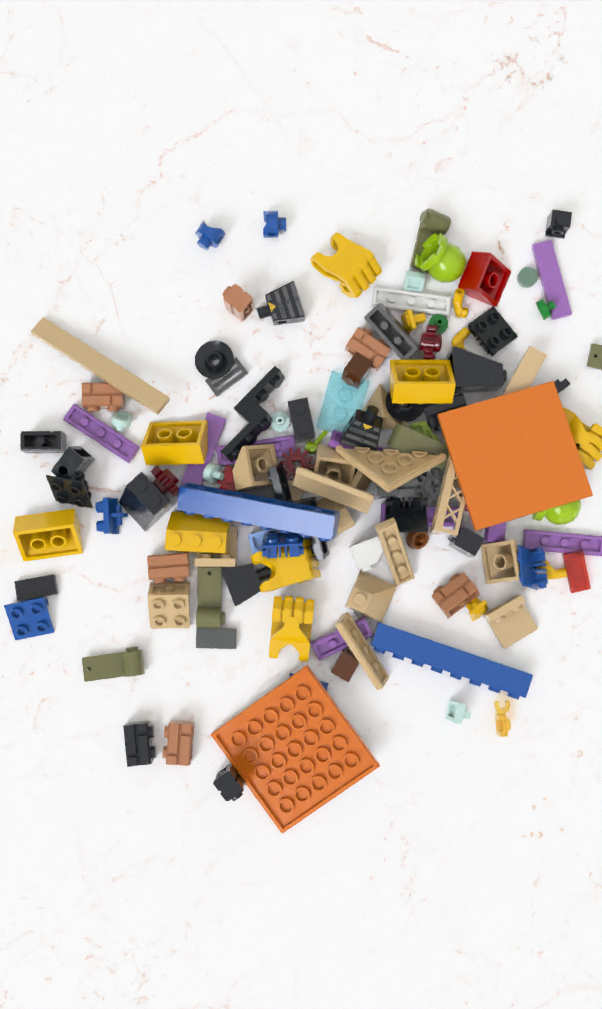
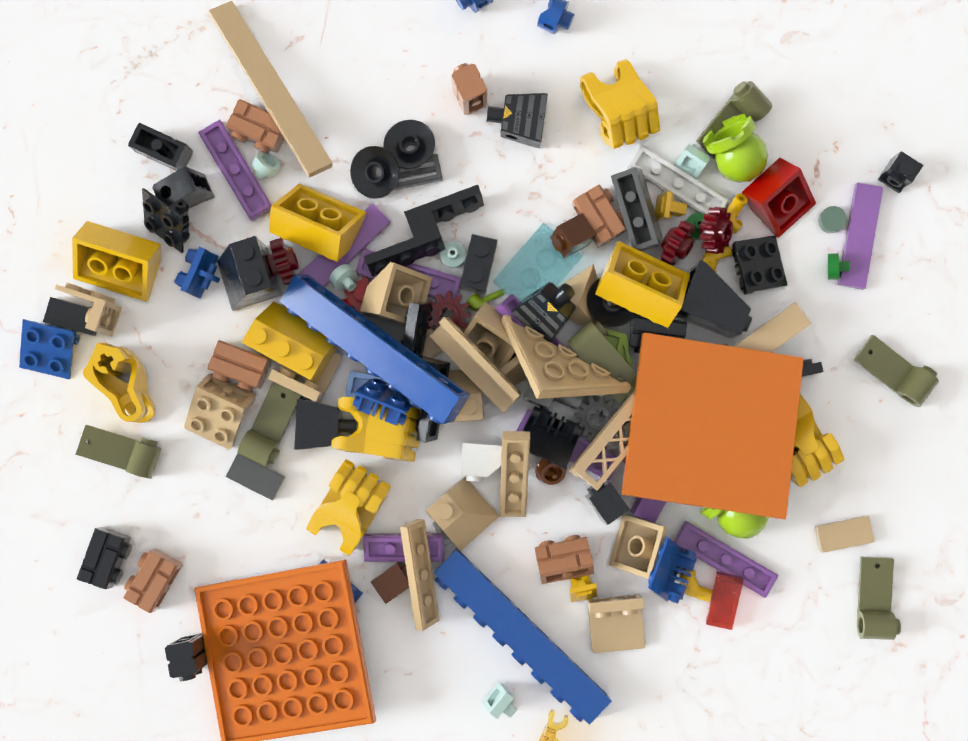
camera: 30 degrees right, 0 degrees up
(59, 573) = (102, 315): none -> tan bracket
(99, 624) = (102, 372): none -> yellow piece
(193, 396) = (364, 175): none -> black dish
(452, 321) = (716, 230): none -> dark red gear

